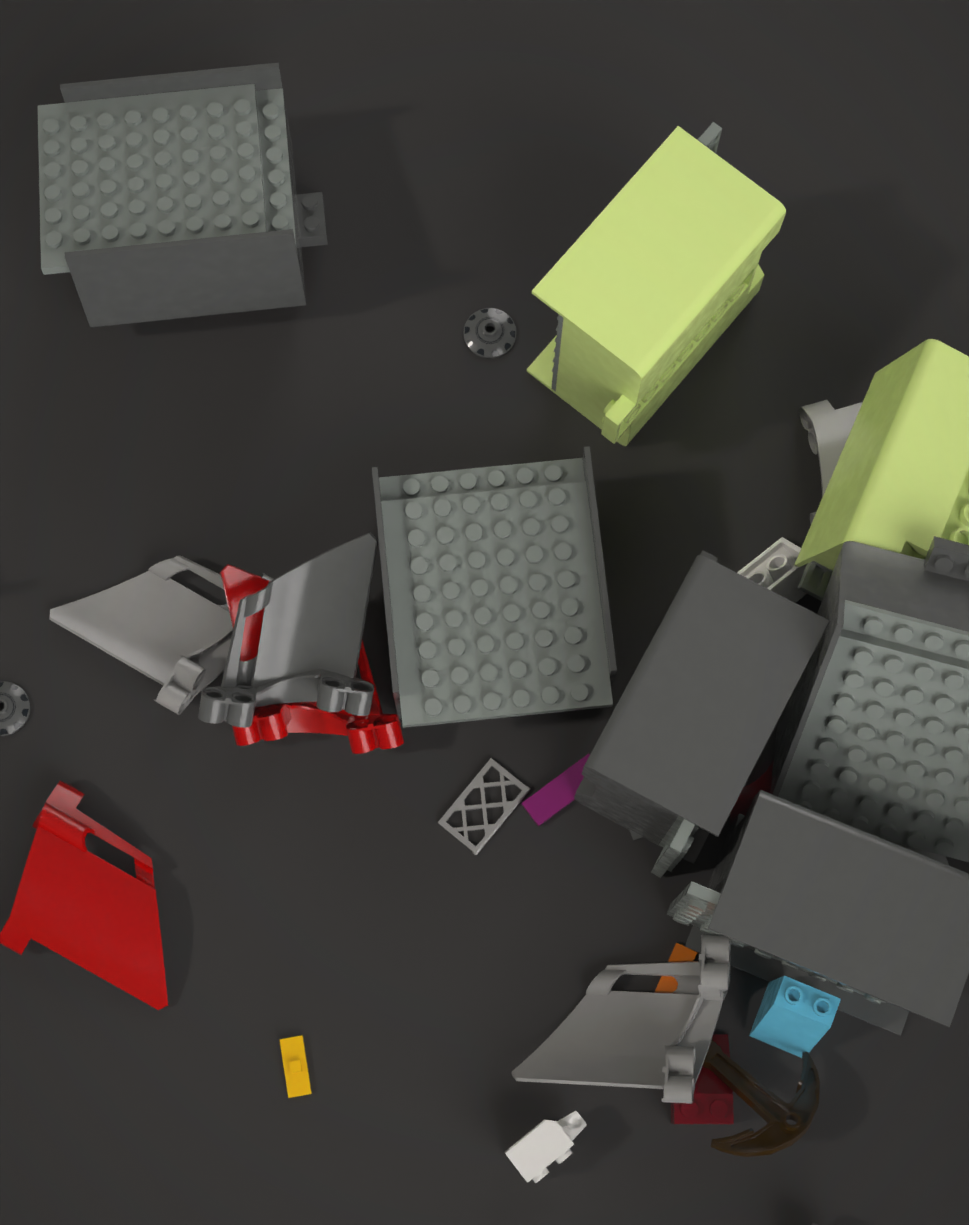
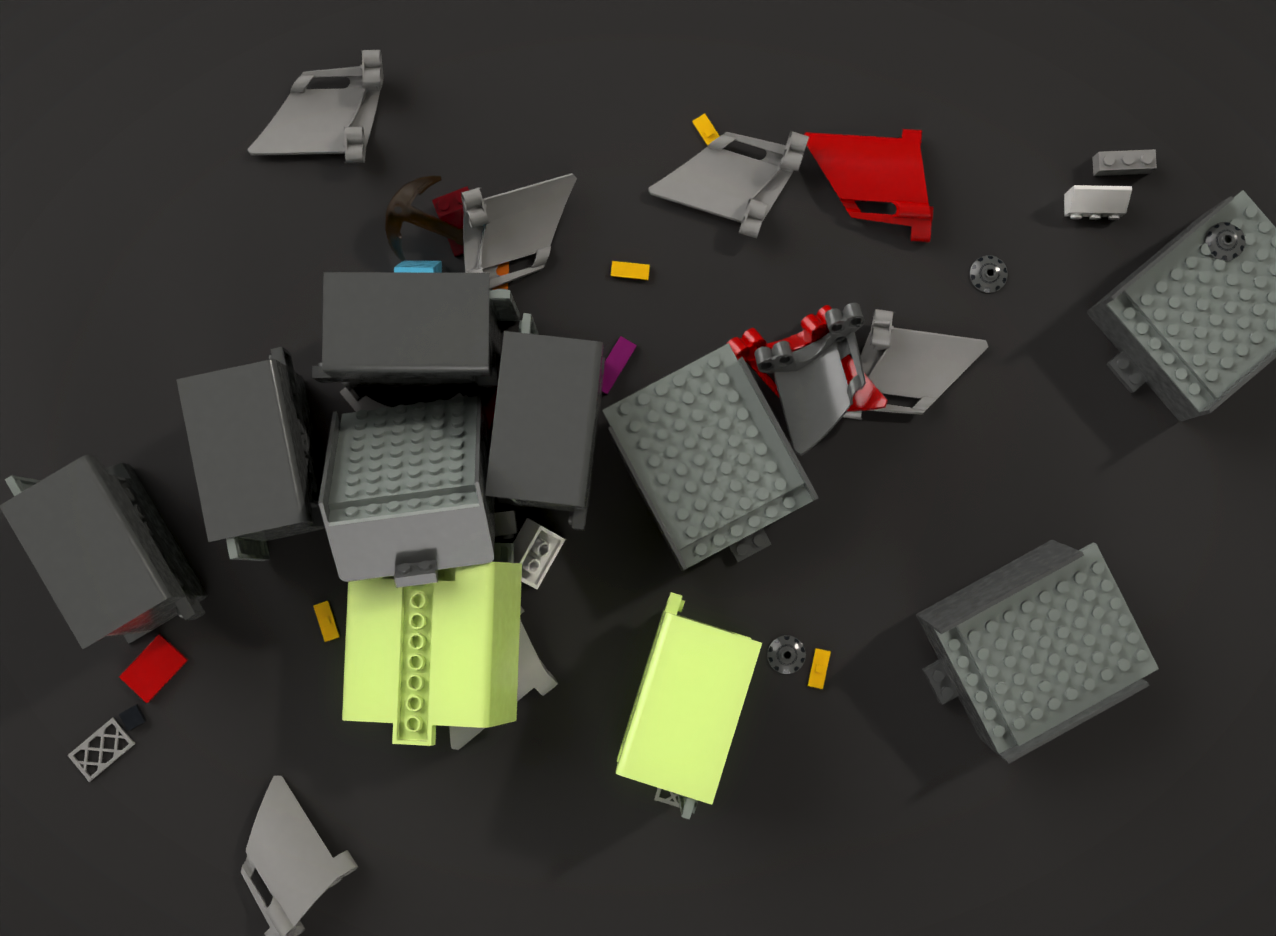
camera: 155 degrees right, 10 degrees up
(292, 976) = (734, 183): none -> light grey panel
(455, 300) = (819, 668): none -> yellow piece
(488, 911) = (630, 270): none -> yellow piece
(490, 829) = (669, 348): light grey window -> none
(545, 1144) = (540, 142): white hinge -> none

